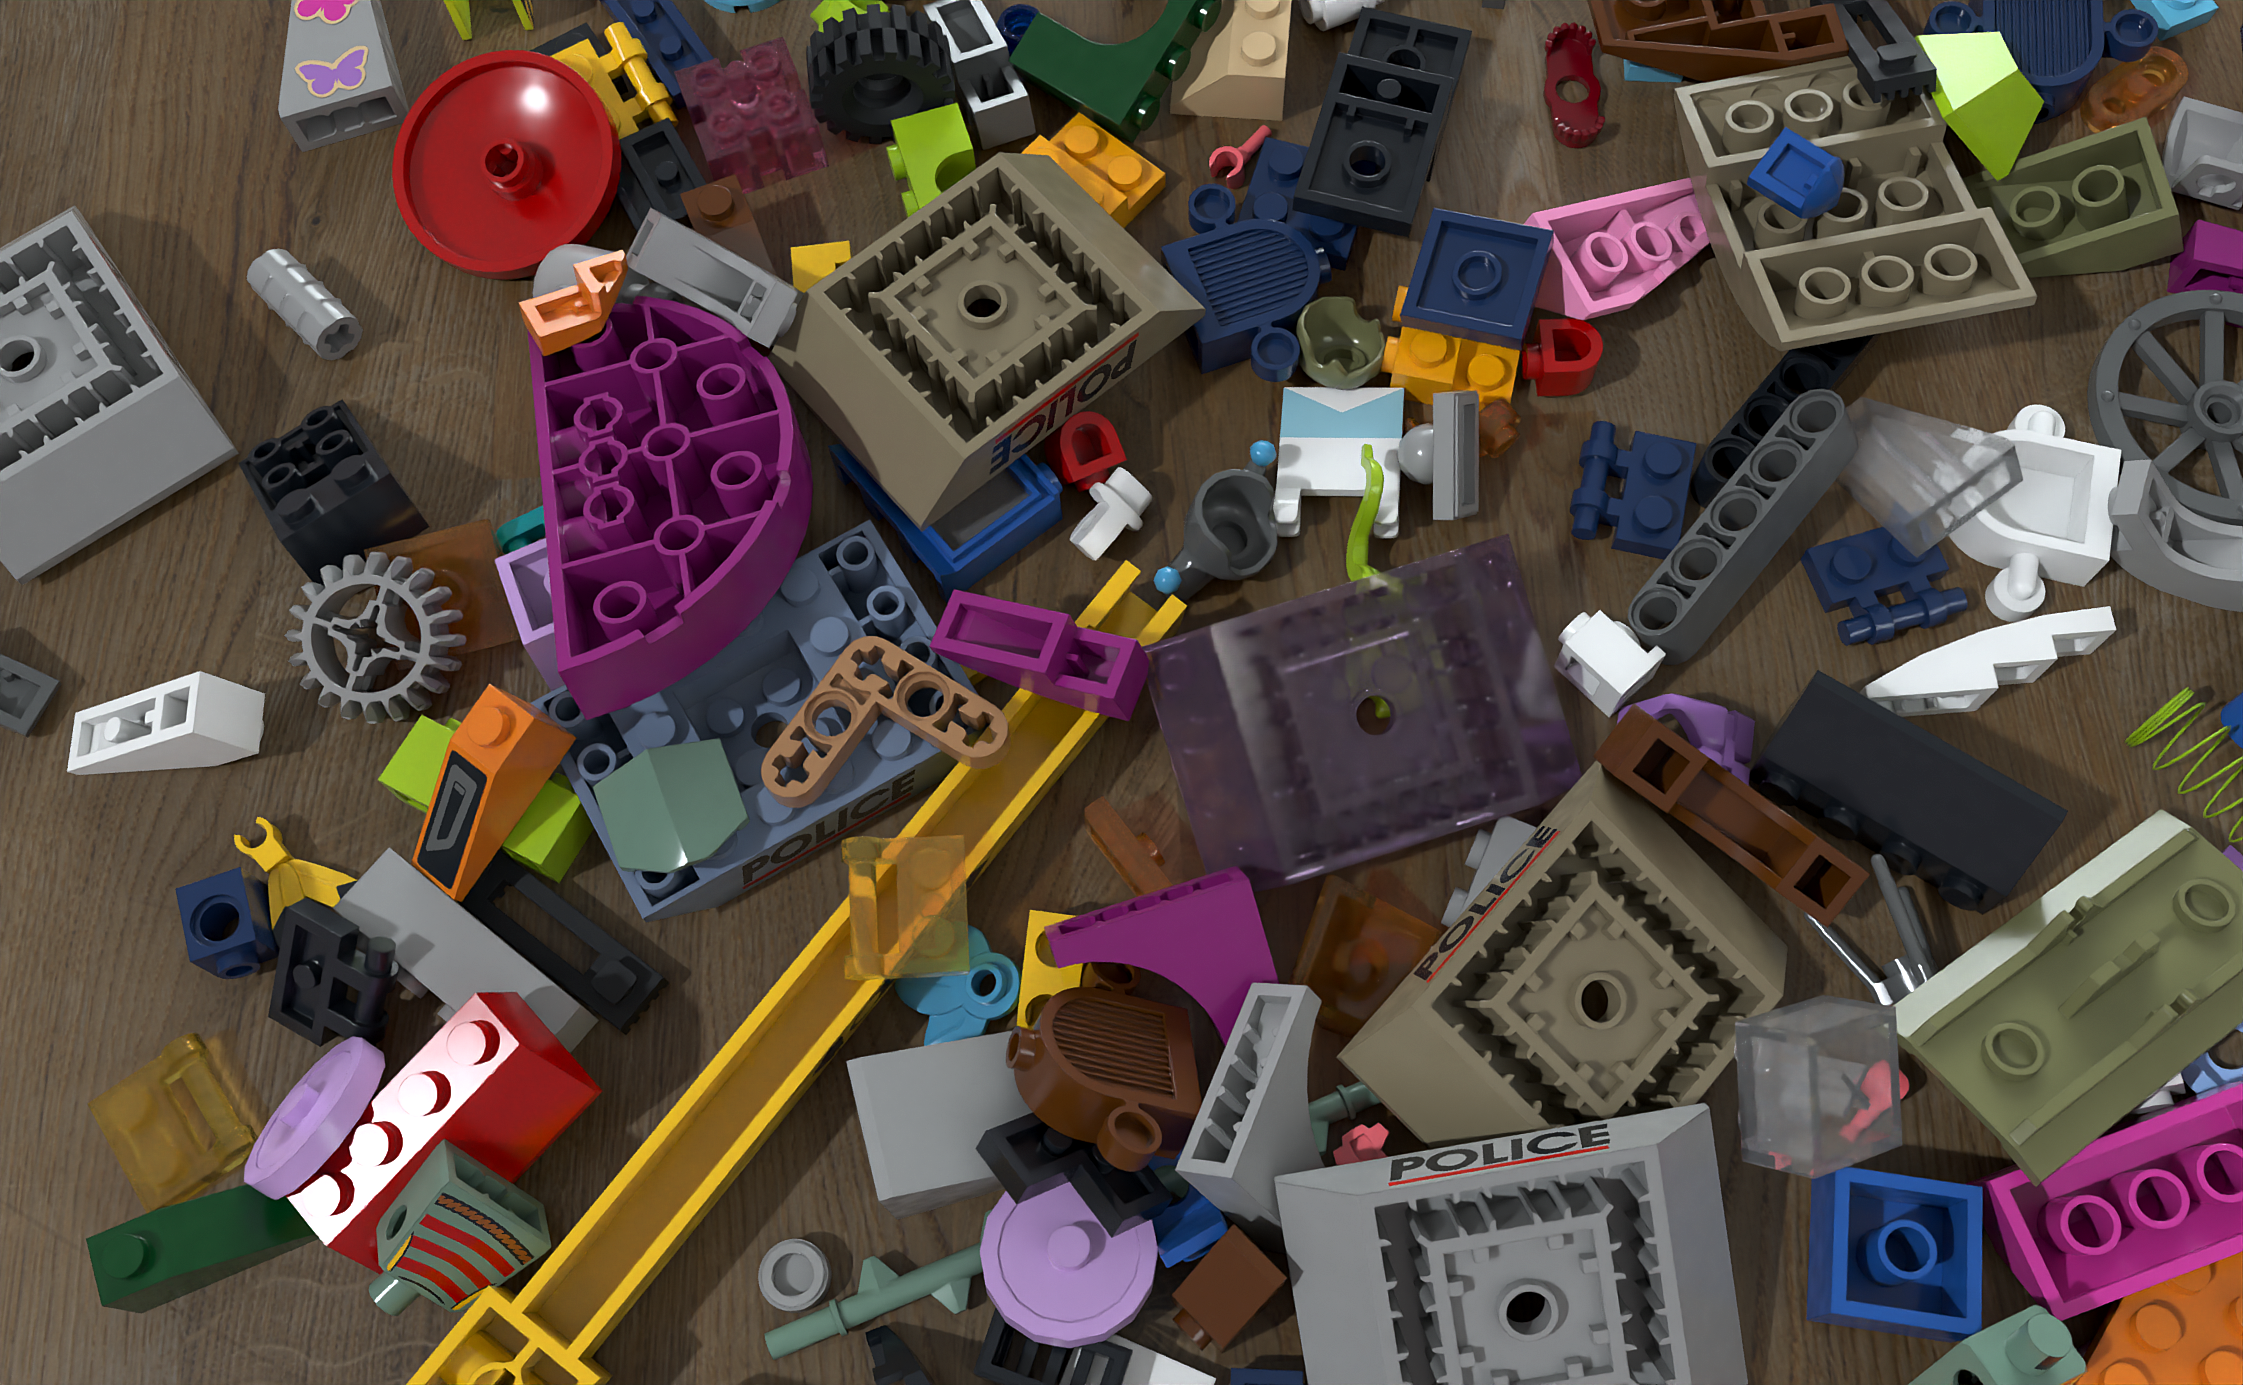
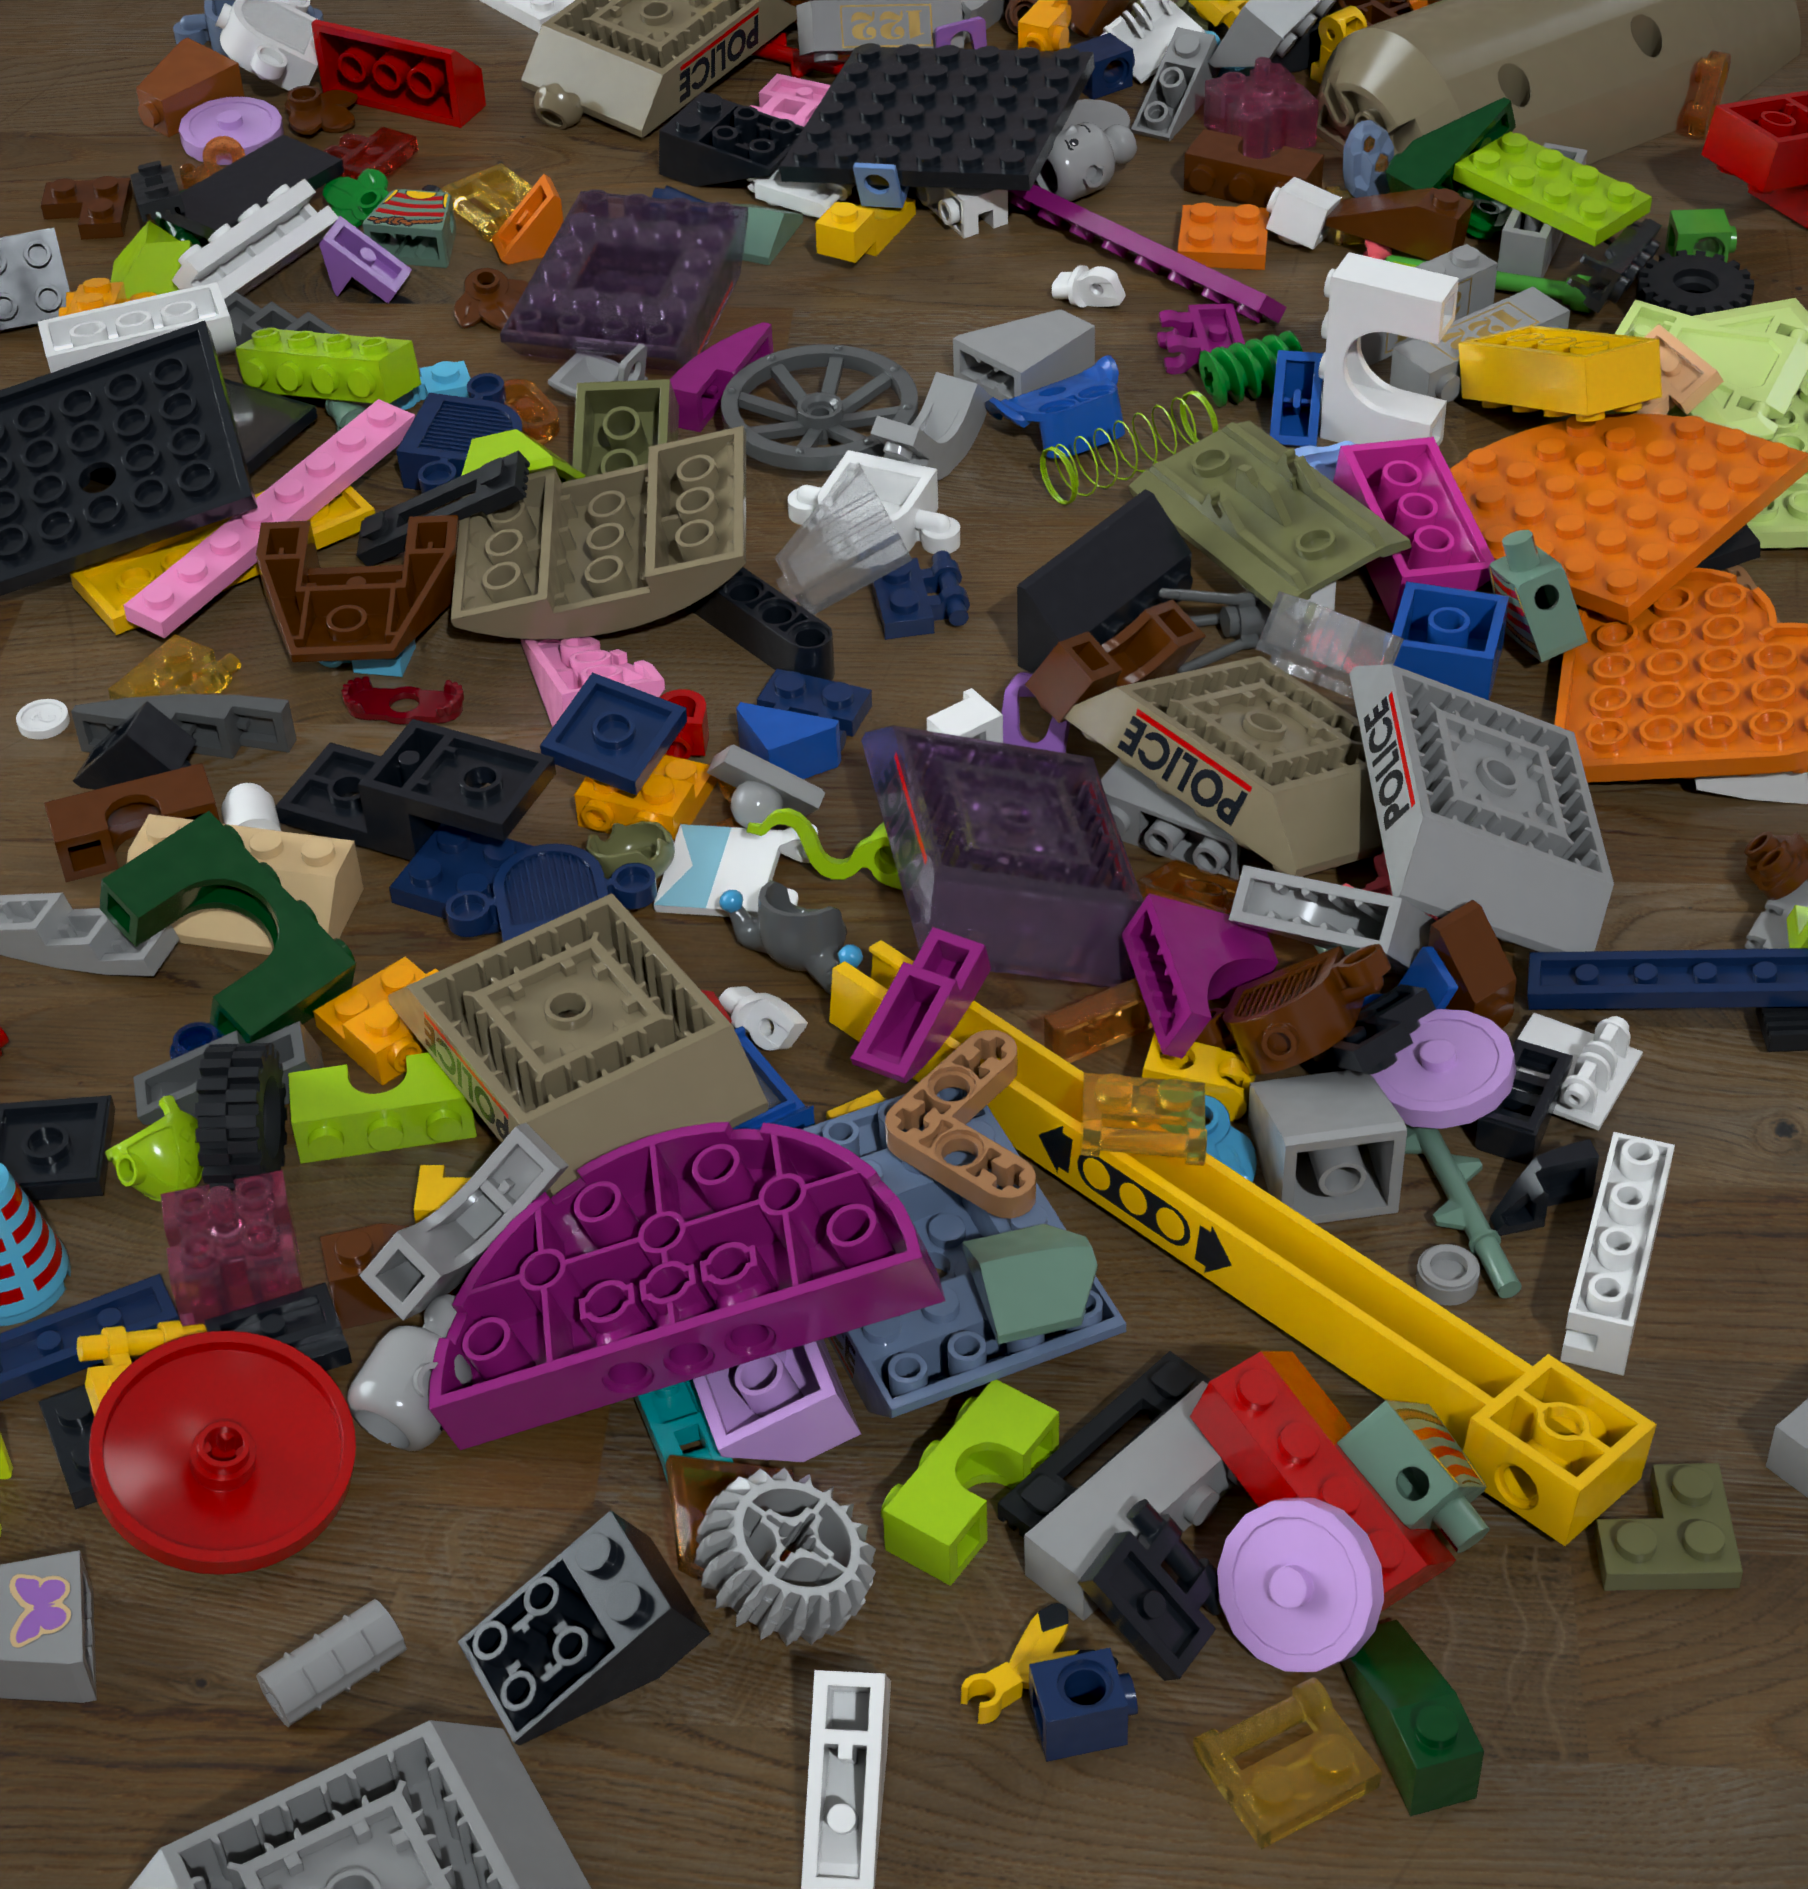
camera: 85 degrees left, 25 degrees down
(485, 786) = (986, 1423): orange slope -> none
(576, 311) = (460, 1342): orange slope -> none
(1237, 157) = (403, 912): coral hand -> none
(1548, 470) = (790, 739): none -> blue slope
(1749, 497) = (857, 617): dark grey beam -> none
(1799, 176) = (580, 542): blue plate -> none
(1970, 669) = (1000, 552): white slope -> none

